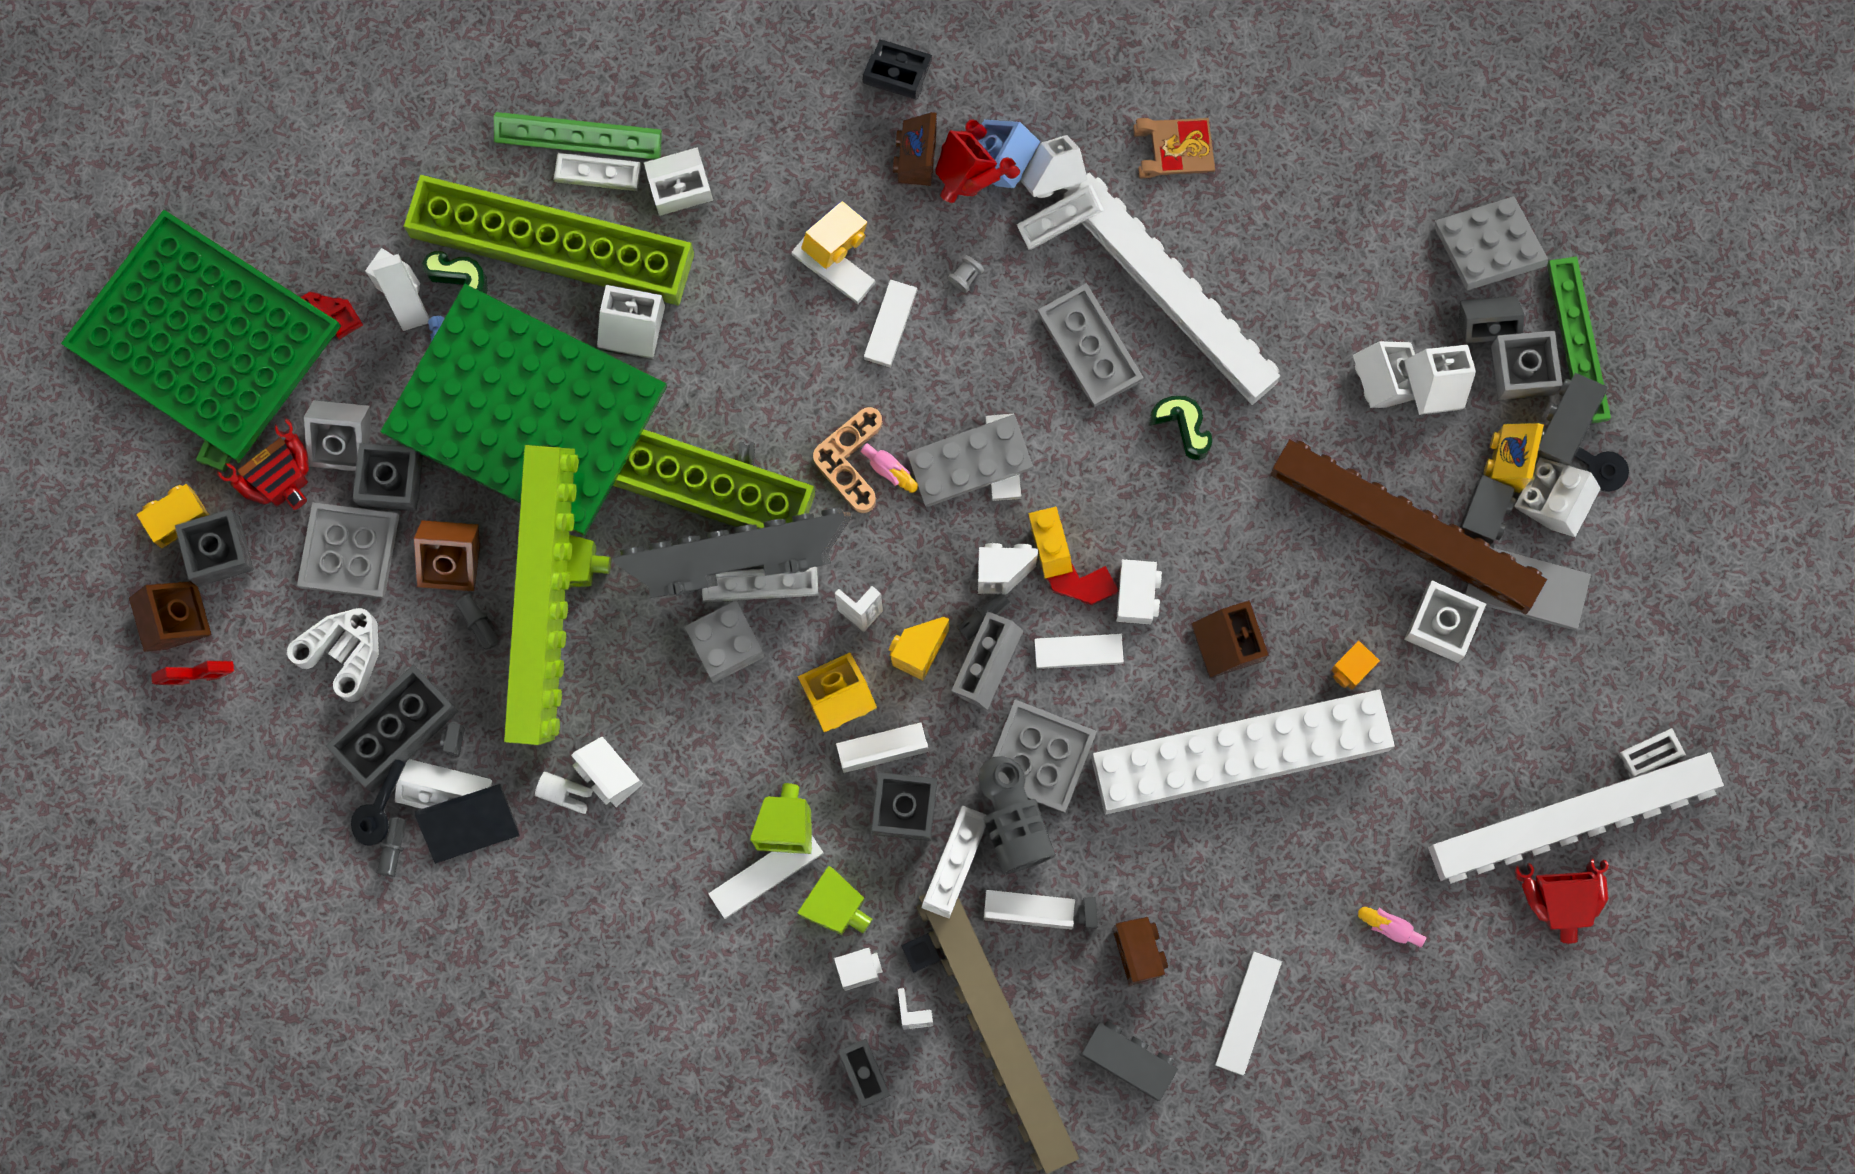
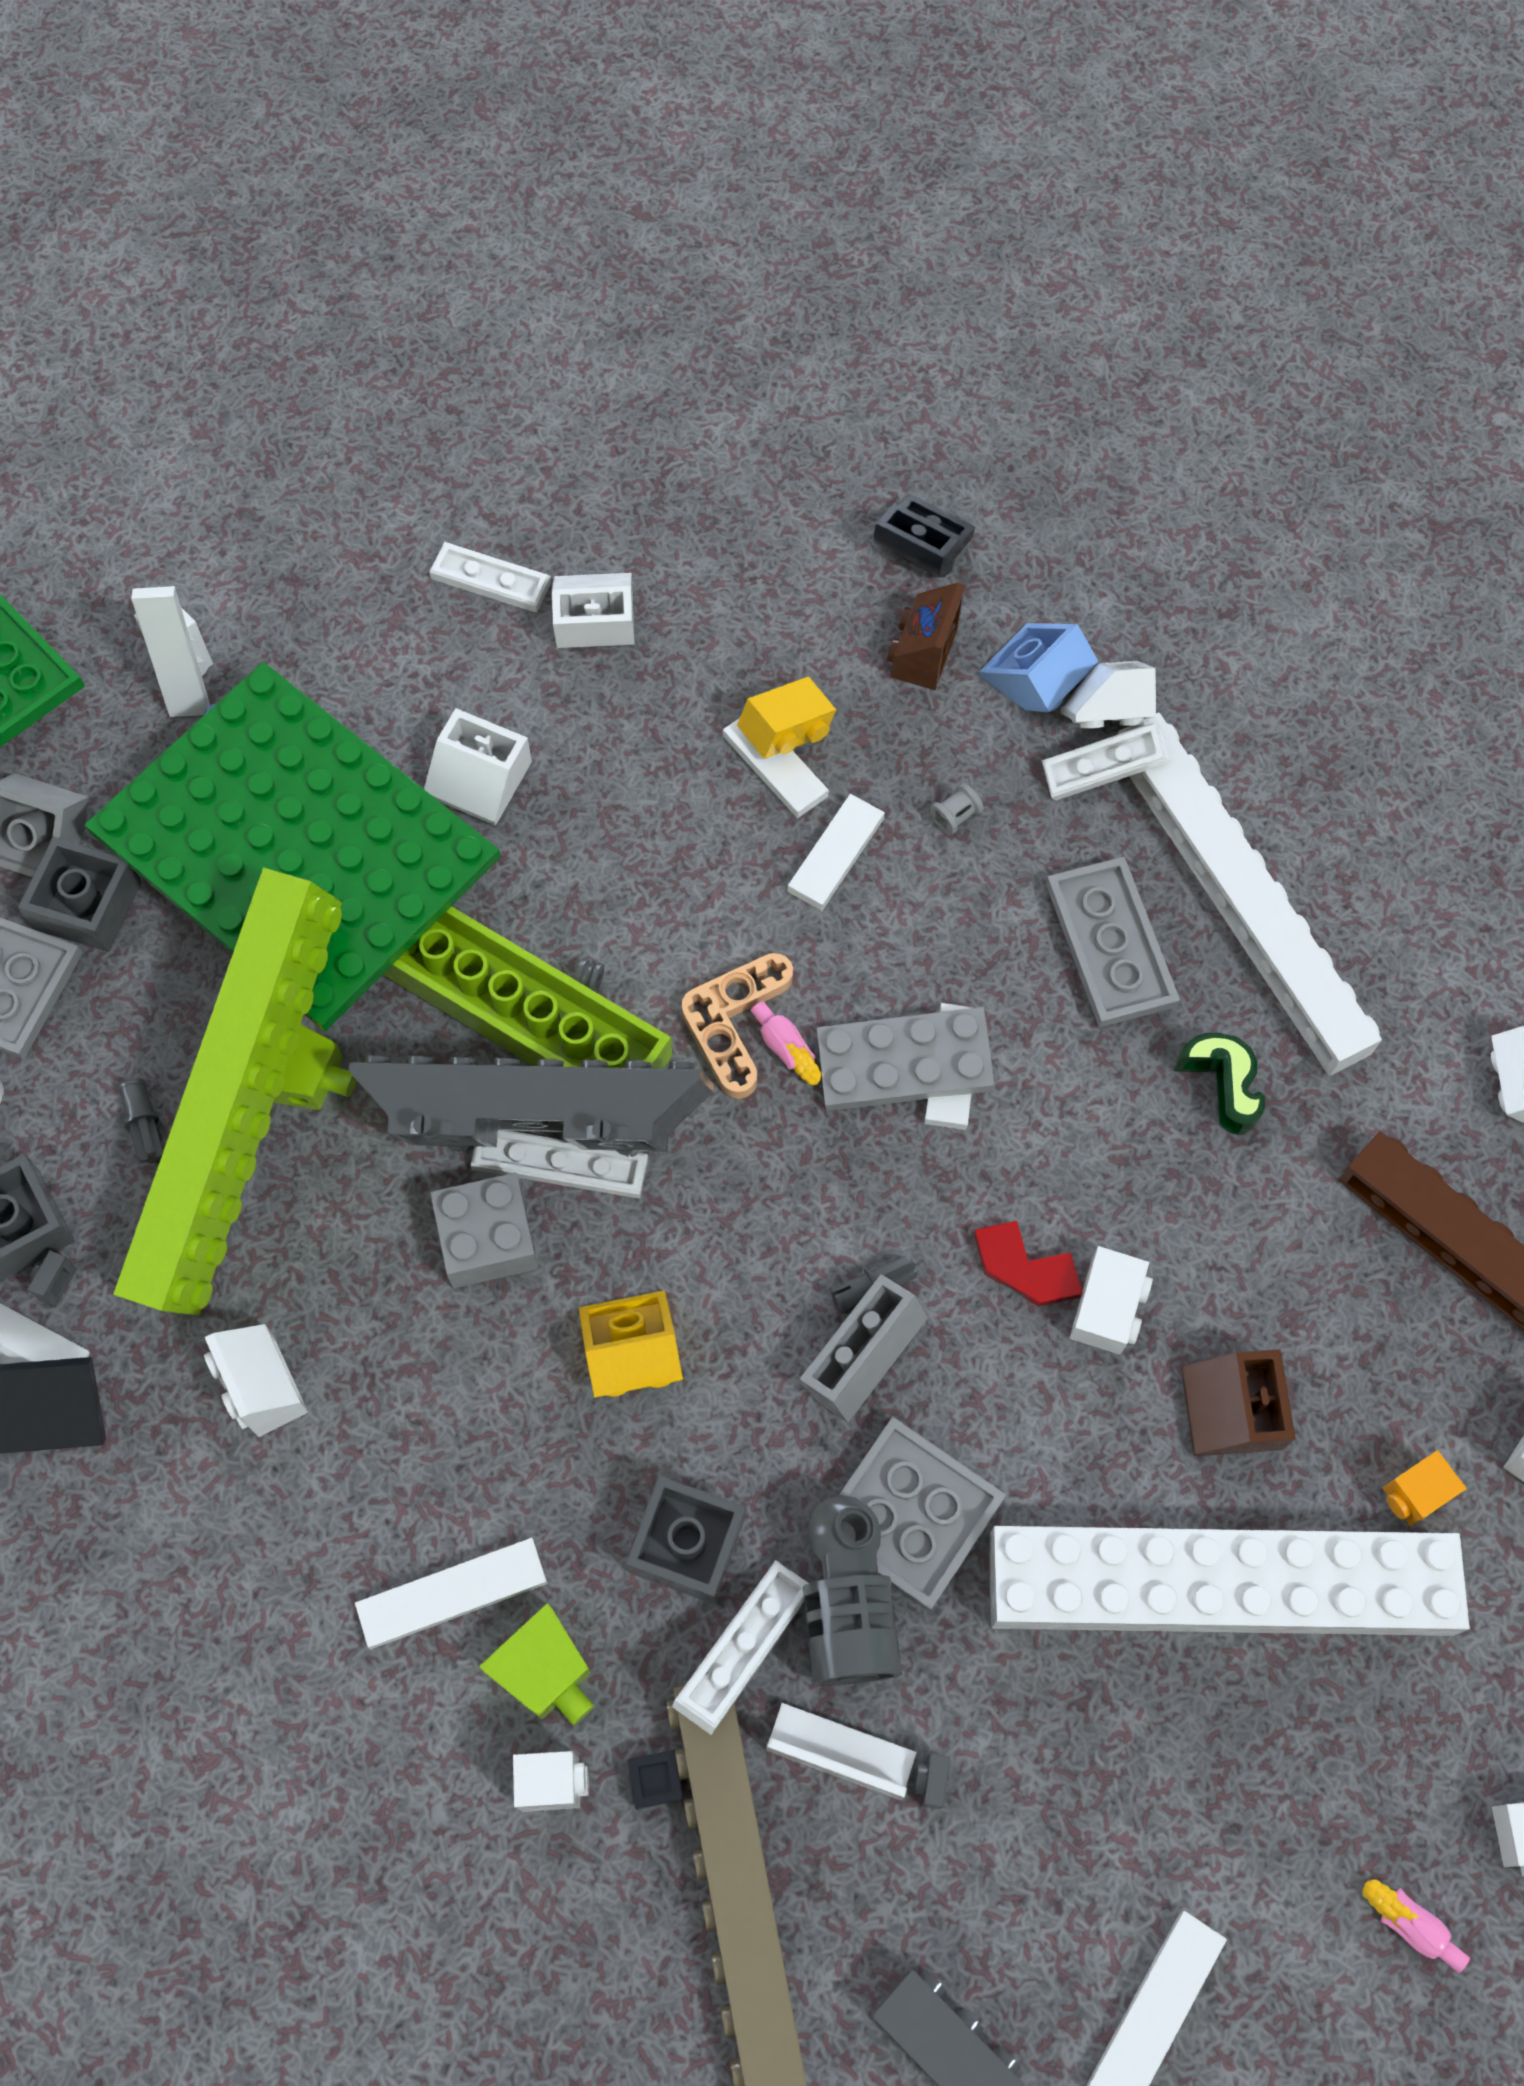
camera: 10 degrees right, 10 degrees down
(338, 309) = (94, 672): red tile -> none
(447, 555) = (128, 1019): dark orange slope -> none
(455, 271) = (248, 650): dark green animal -> none
(548, 239) = (398, 639): lime brick -> none
(557, 791) = (179, 1391): white hinge -> none
(577, 135) = (476, 525): bright green plate -> none
(784, 823) = (497, 1521): lime torso -> none
(864, 611) = (697, 1229): white panel -> none
(864, 1073) = (515, 1959): dark grey brick -> none
(882, 747) = (676, 1442): white panel -> none
(913, 1019) = (610, 1889): white panel -> none
(918, 647) = (767, 1302): yellow slope -> none
(966, 164) = (993, 667): red torso -> none
(1004, 568) = (921, 1216): white slope -> none
(1050, 542) = (997, 1198): yellow brick -> none
(1078, 651) = (1004, 1368): white tile -> none
(1139, 950) = (1001, 1863): reddish brown slope -> none
(1178, 146) = (1284, 711): flag -> none

